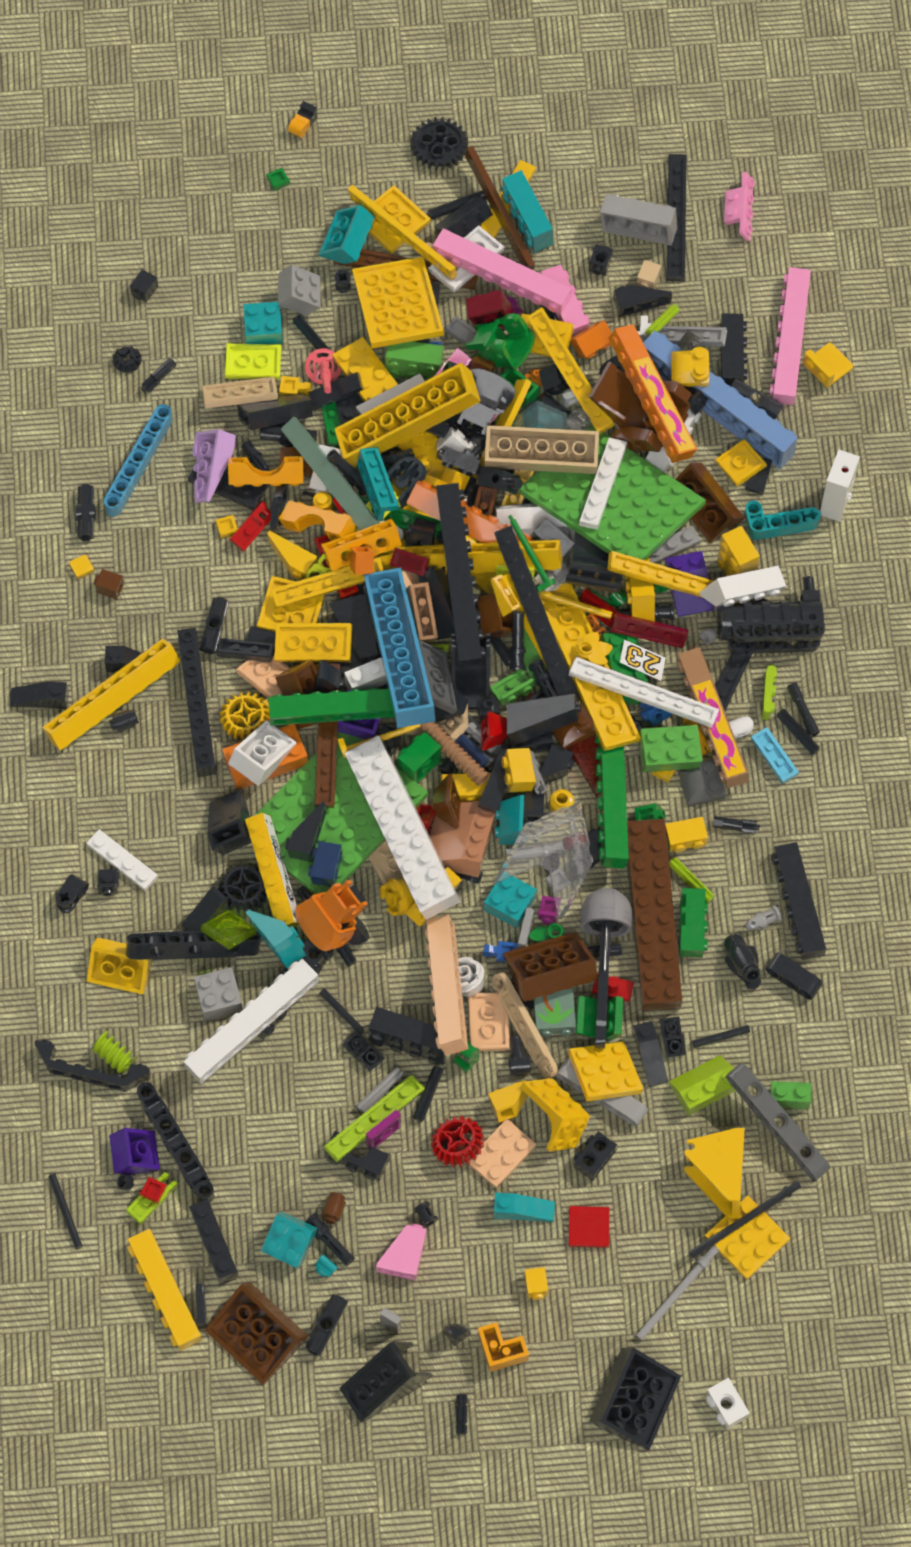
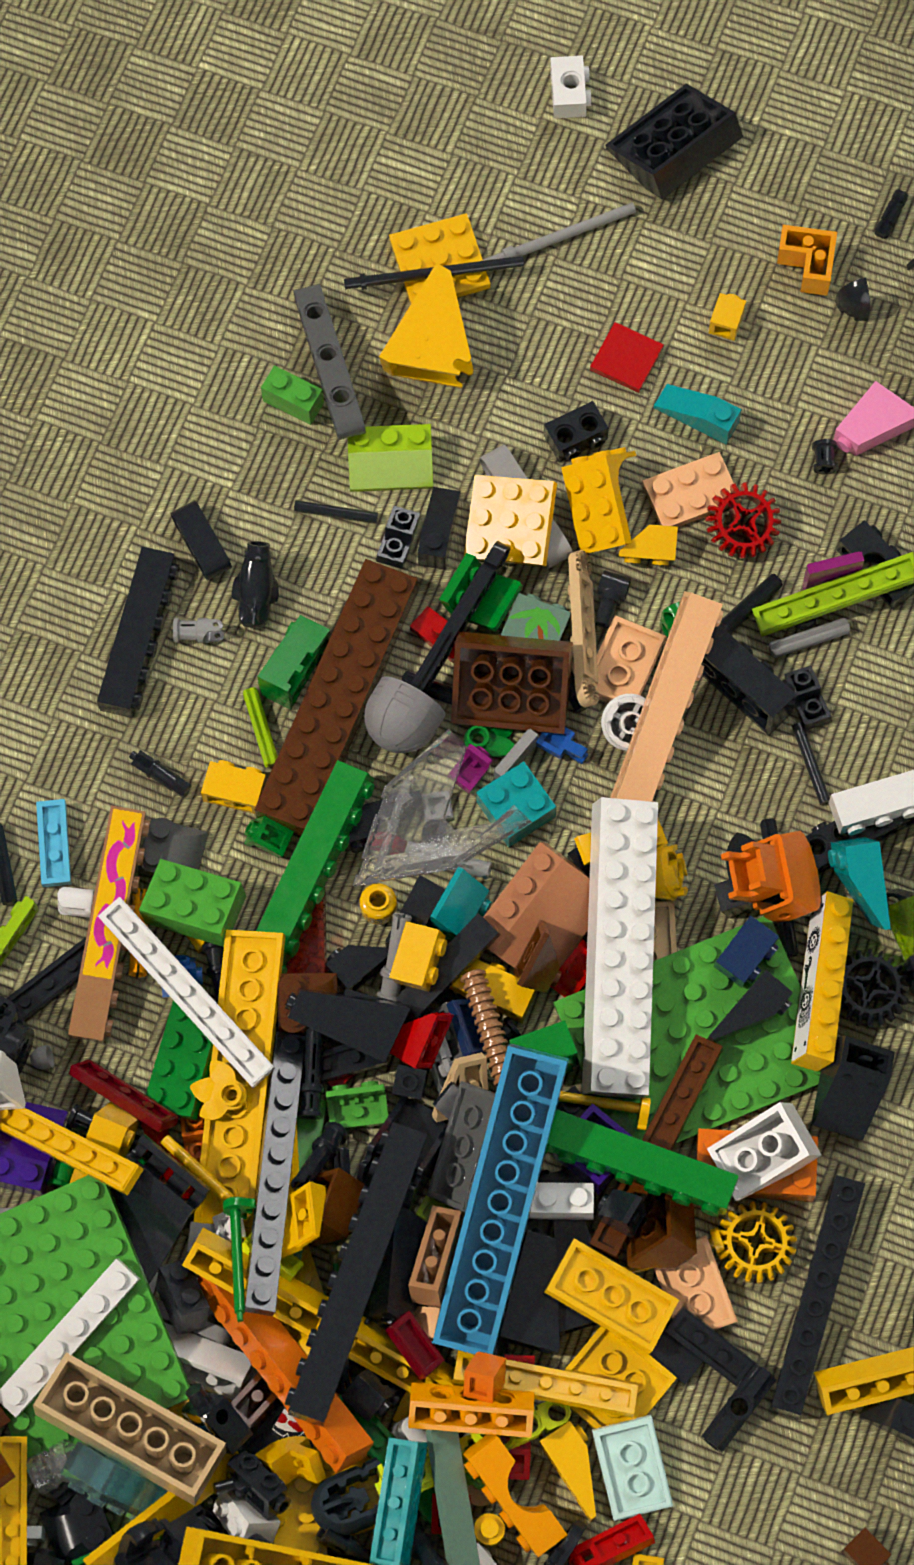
camera: 150 degrees left, 5 degrees up
(259, 569) = (632, 1467): none -> light aqua tile
(642, 660) = (155, 1060): sticker -> none

